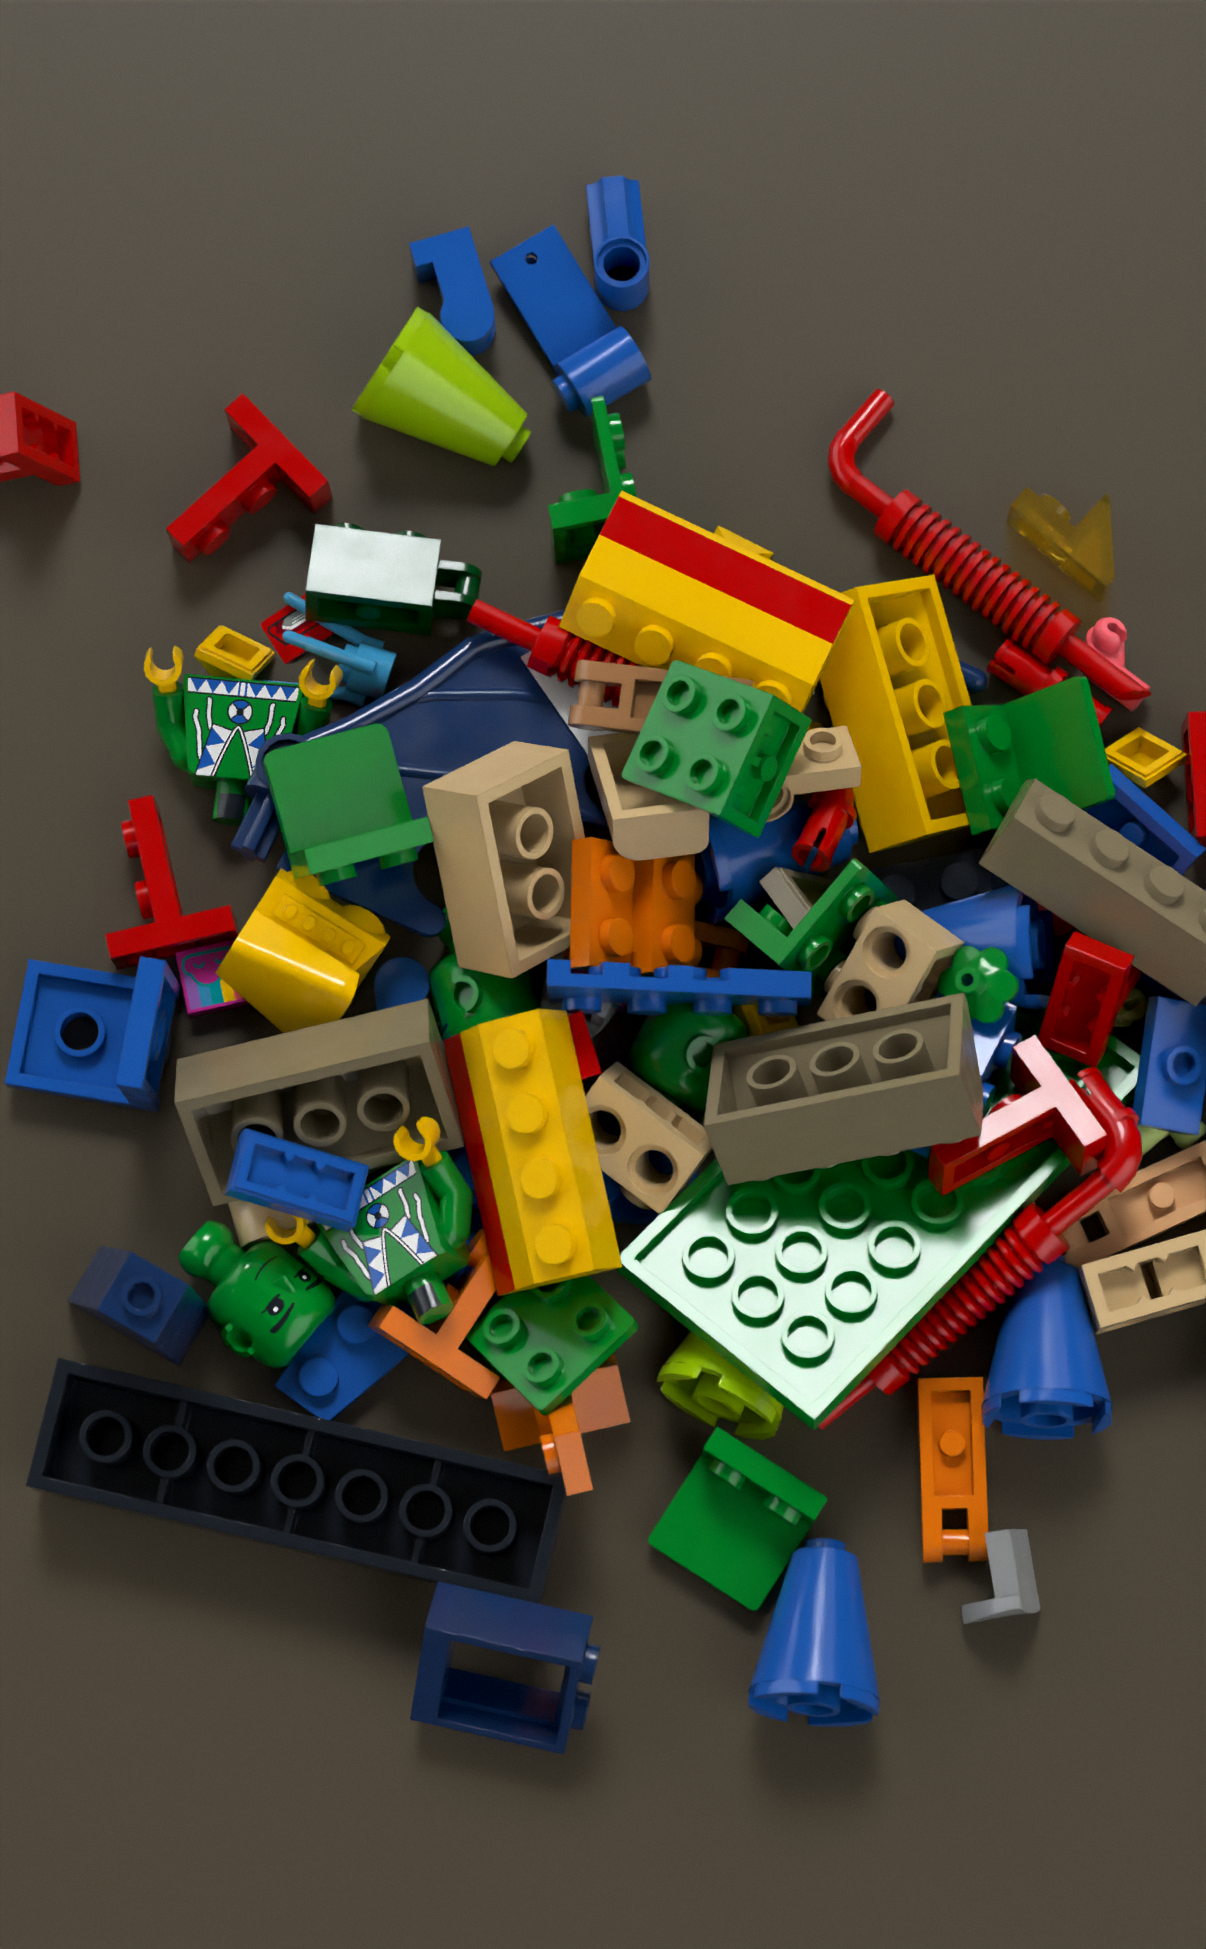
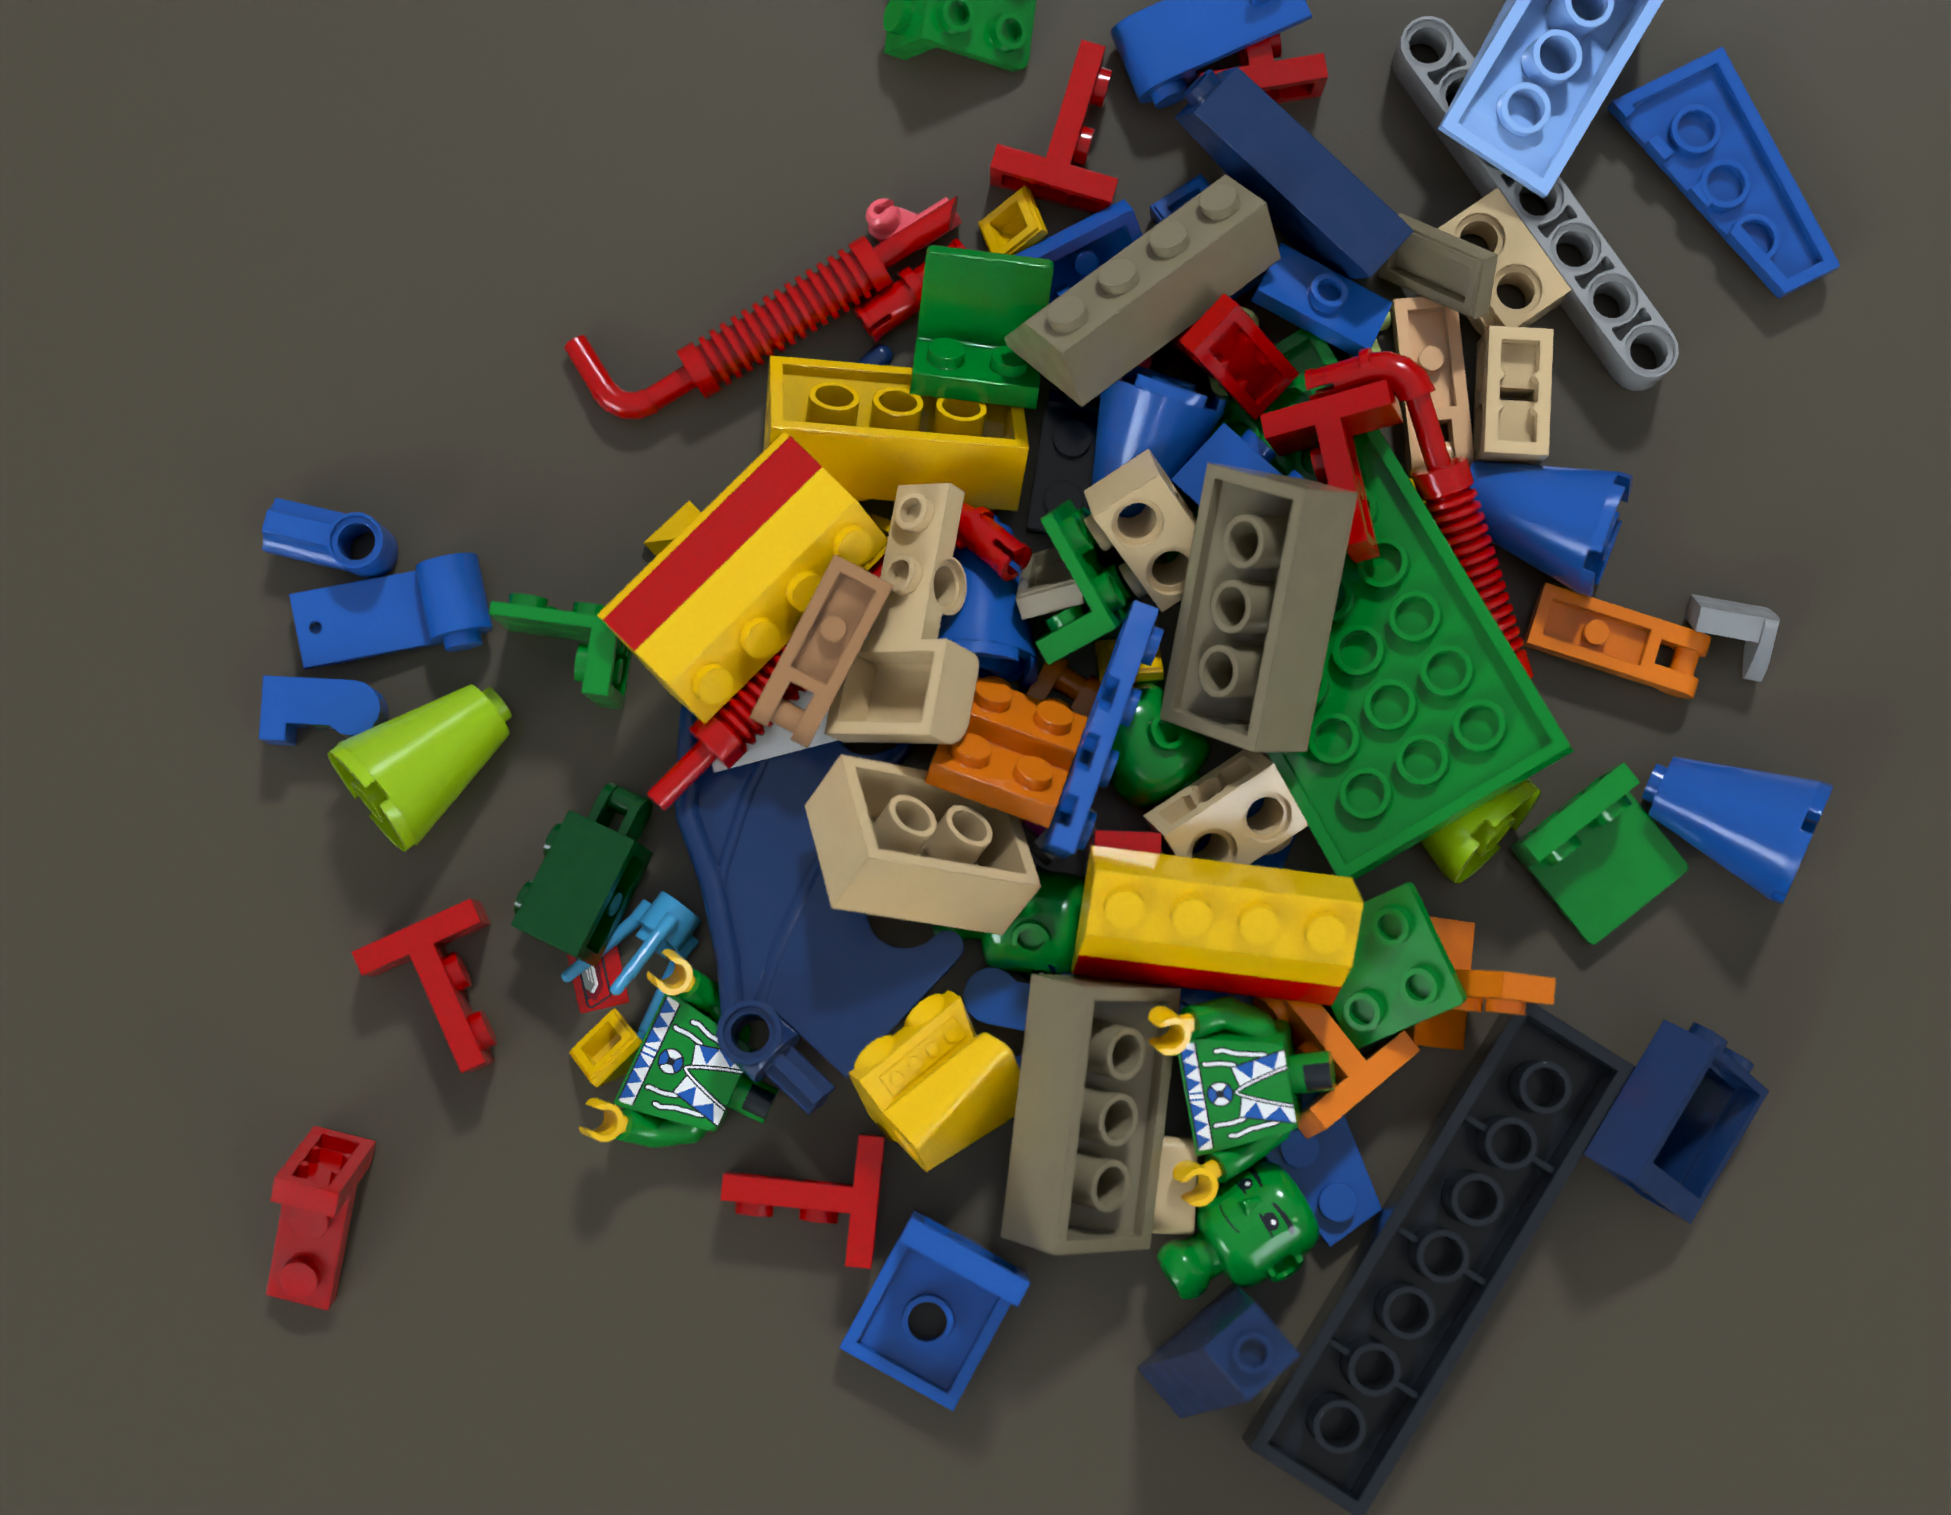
camera: 75 degrees left, 5 degrees up
(201, 986) = (908, 1184): tile -> none
(297, 1180) = (1163, 1160): blue plate -> none
(343, 804) = (815, 991): green bracket -> none
(717, 746) = (888, 612): green bracket -> none
(991, 981) = (1189, 433): green plant -> none
(1079, 551) = (795, 211): clear yellow slope -> none

